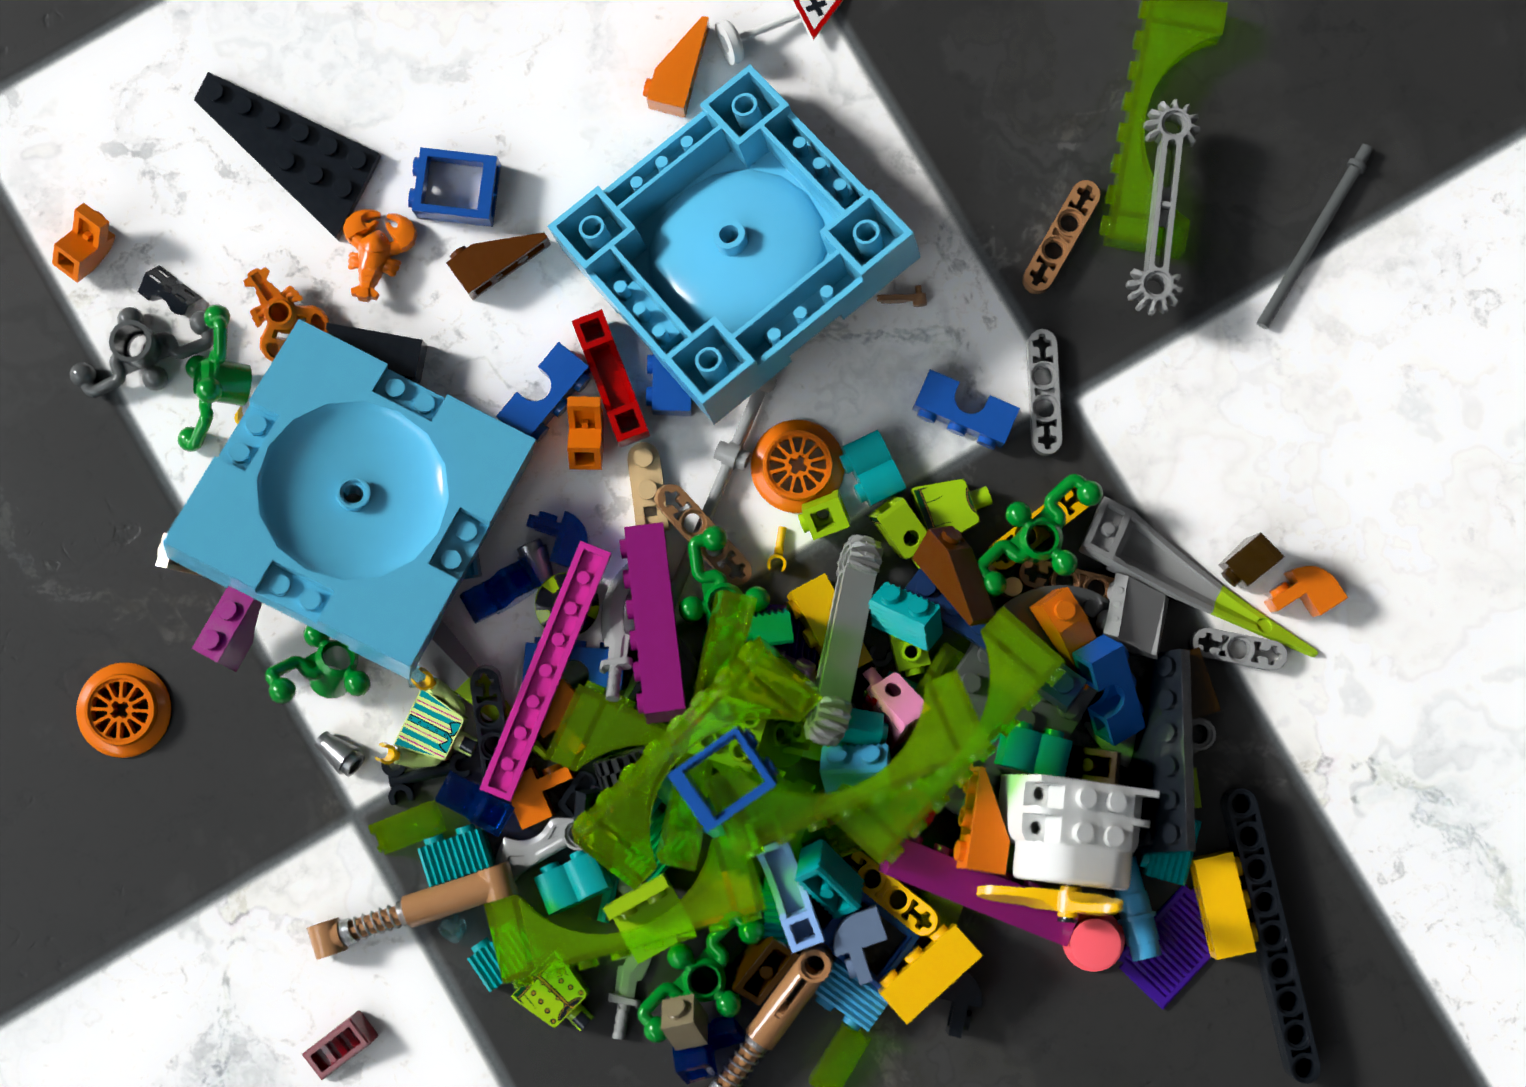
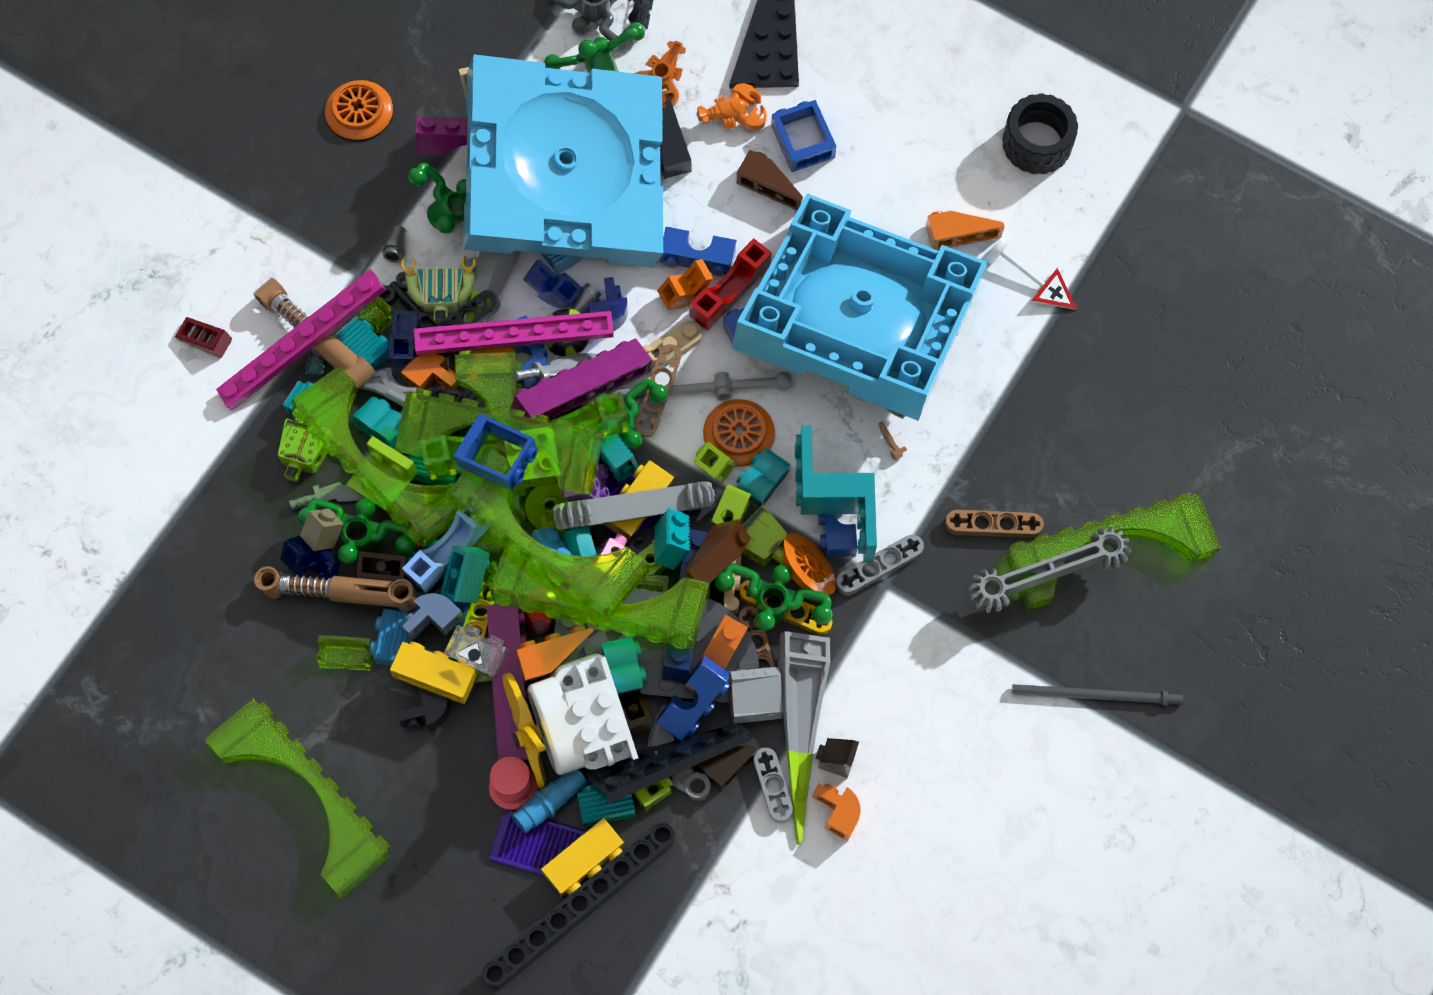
camera: 60 degrees right, 15 degrees down
(418, 931) = (300, 339): none -> dark pink plate
(779, 549) = (674, 447): yellow hand -> none
(937, 912) = (477, 651): none -> clear brick
(956, 398) = (836, 494): none -> teal bracket
(1013, 475) = (808, 564): none -> orange piece

